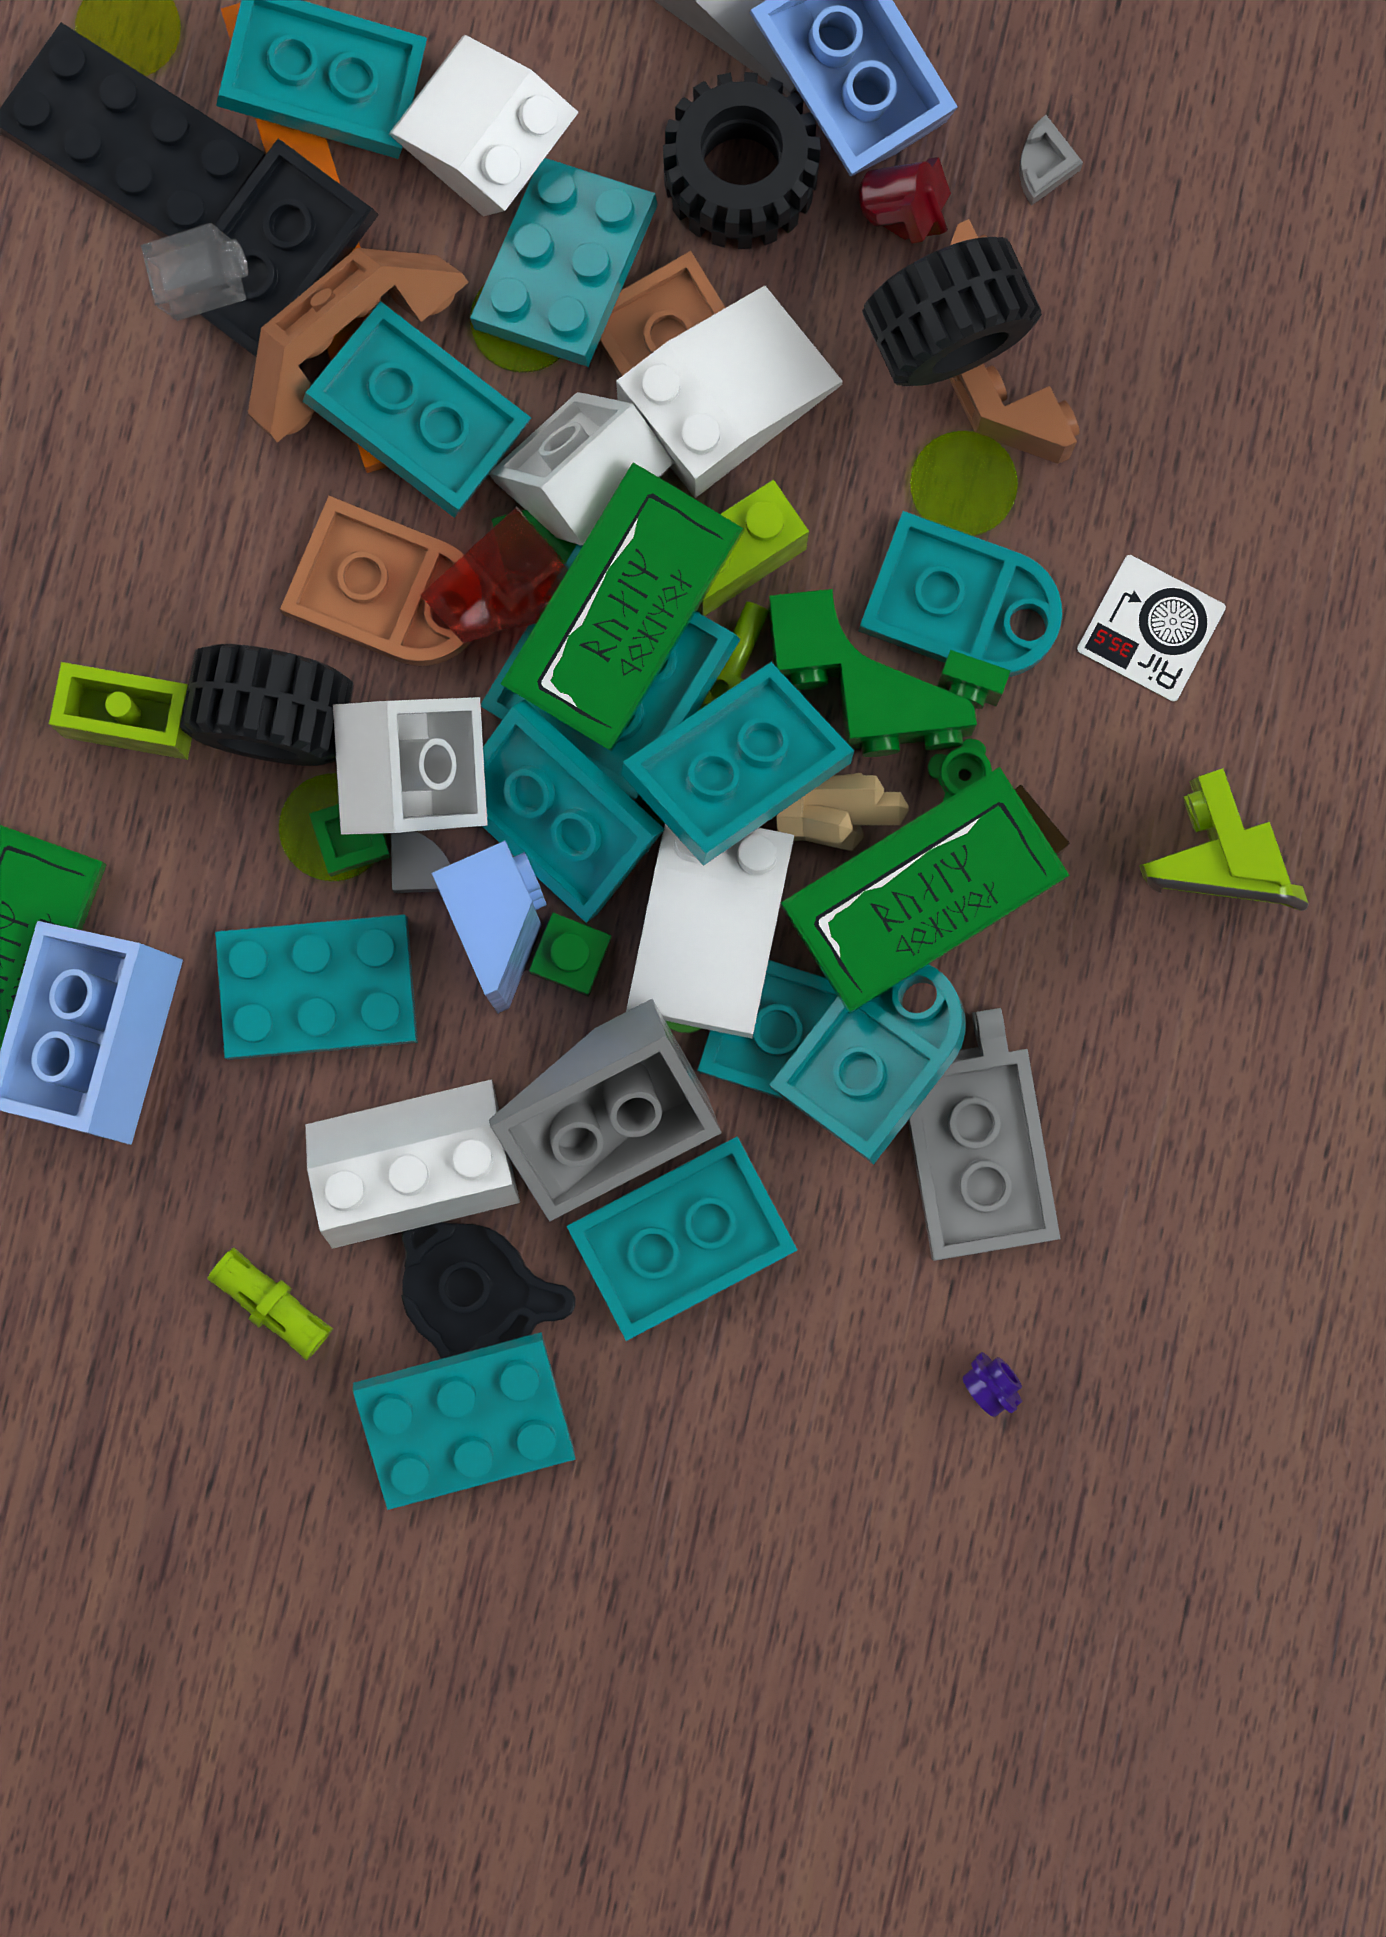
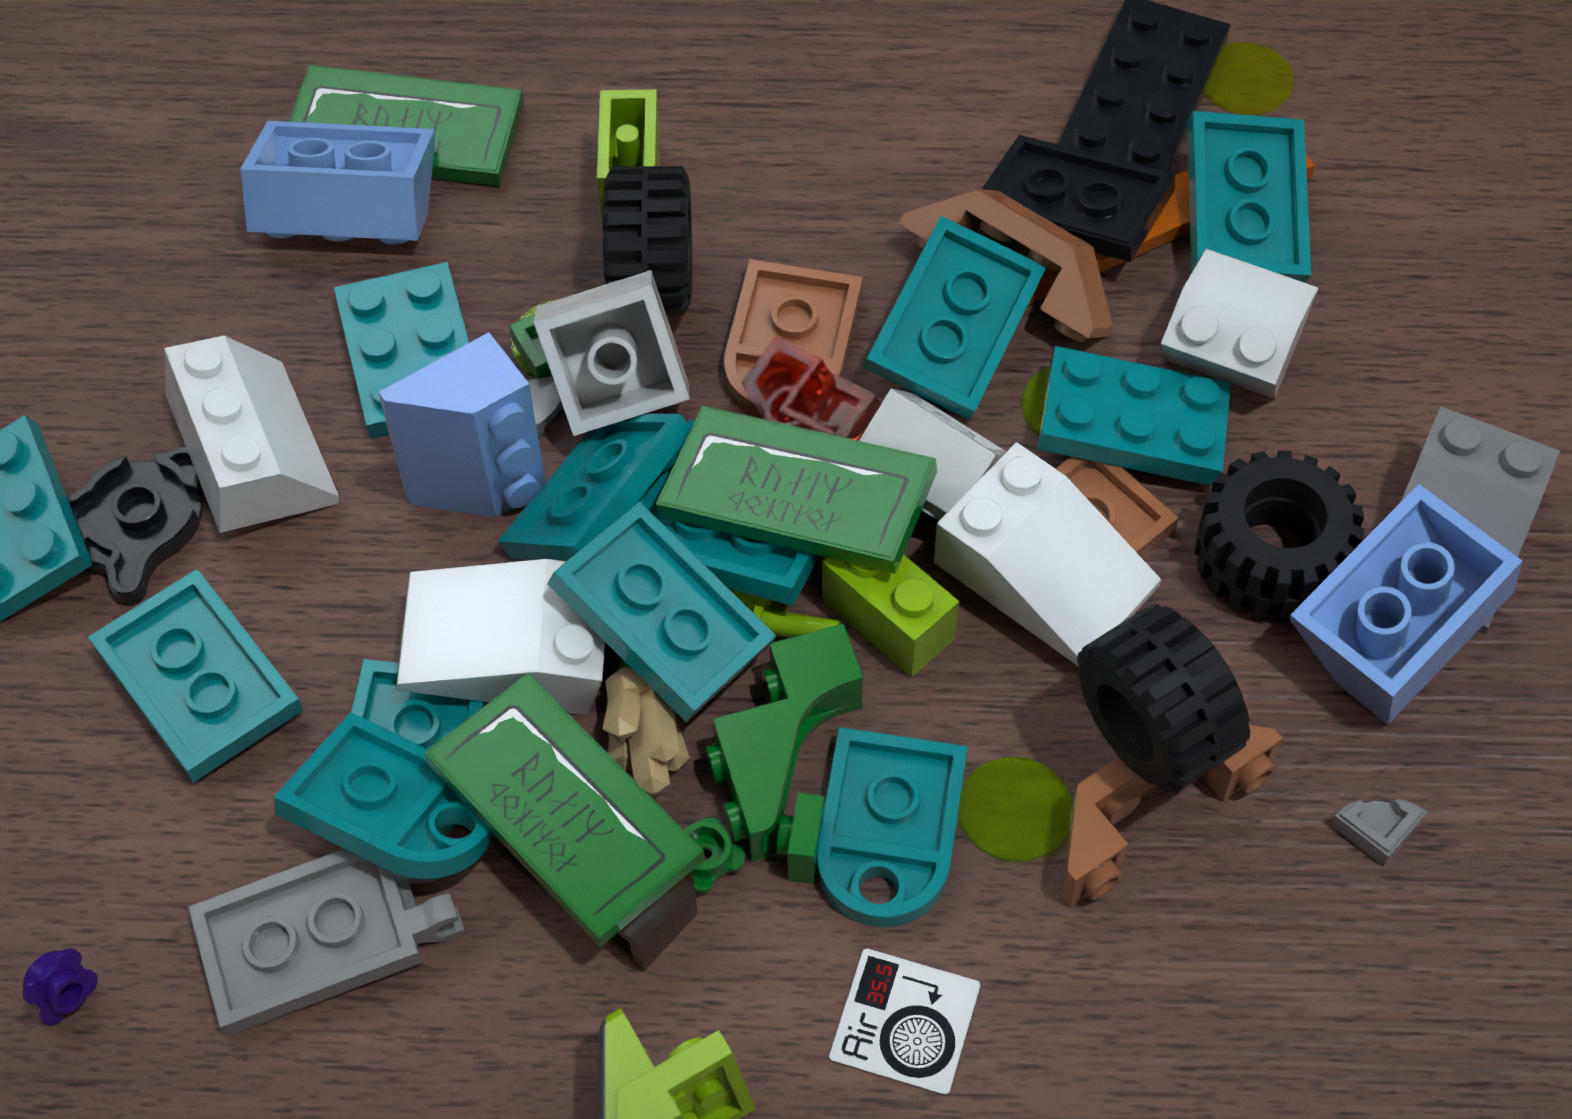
camera: 80 degrees right, 25 degrees down
(195, 271) = (1032, 131): clear brick -> none
(269, 1303) = (112, 360): lime pin -> none
(570, 954) = (466, 537): green plate -> none
(605, 1112) = (306, 570): light grey slope -> none
(906, 199) = (1292, 692): dark red piece -> none

